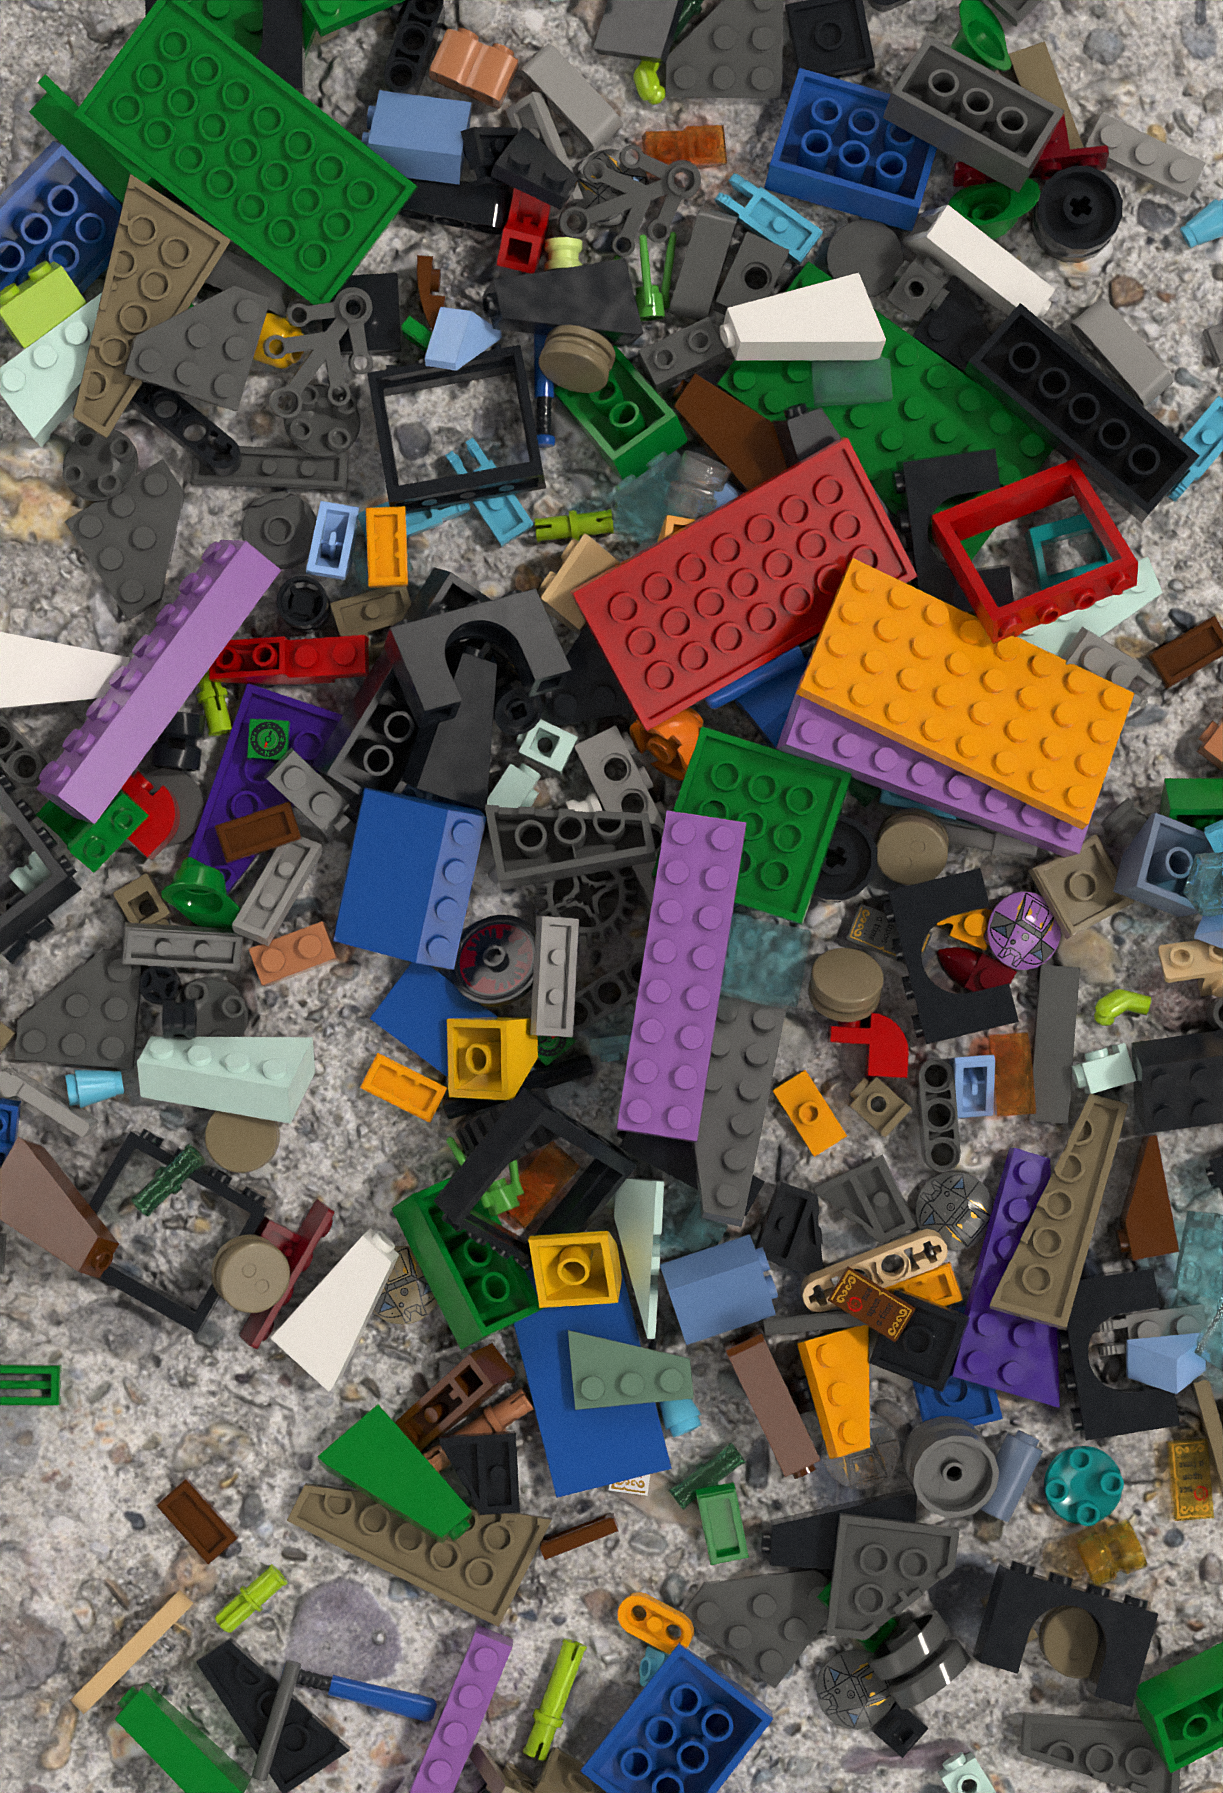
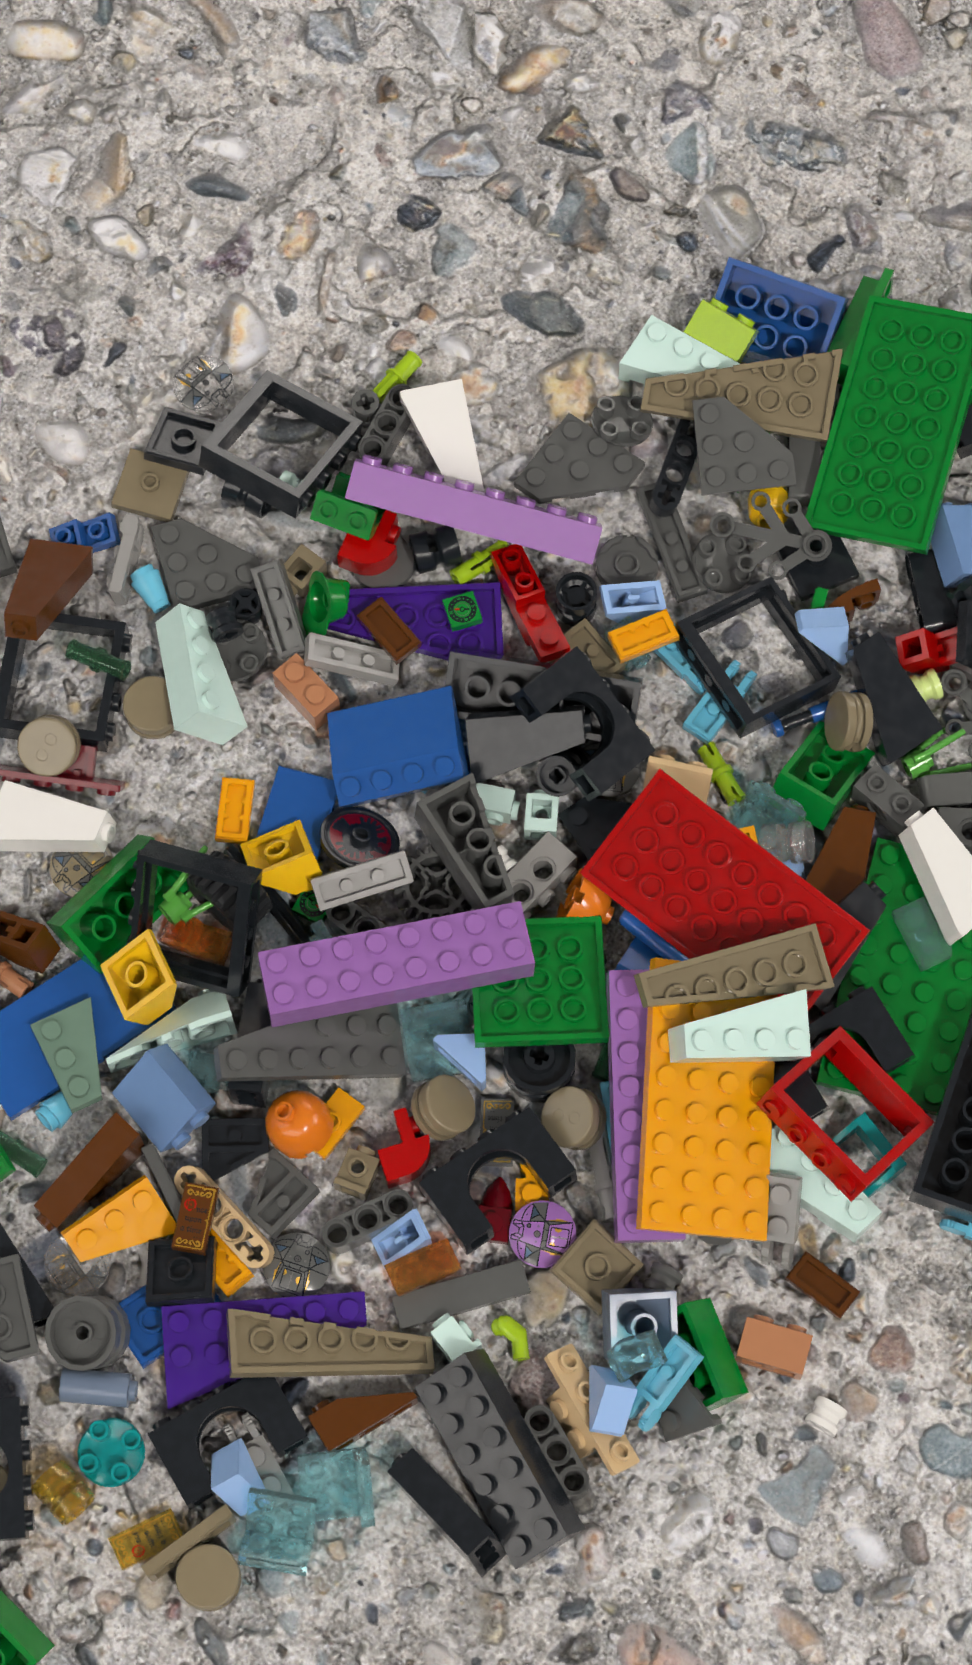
camera: 75 degrees right, 15 degrees down
(312, 794) = (433, 655): dark grey hinge -> none
(795, 939) = (462, 1054): none -> light blue slope
(801, 1149) = (298, 1123): none -> orange cylinder
(849, 576) = (753, 969): none -> dark tan wing
(922, 612) = (753, 1033): none -> light aqua wedge

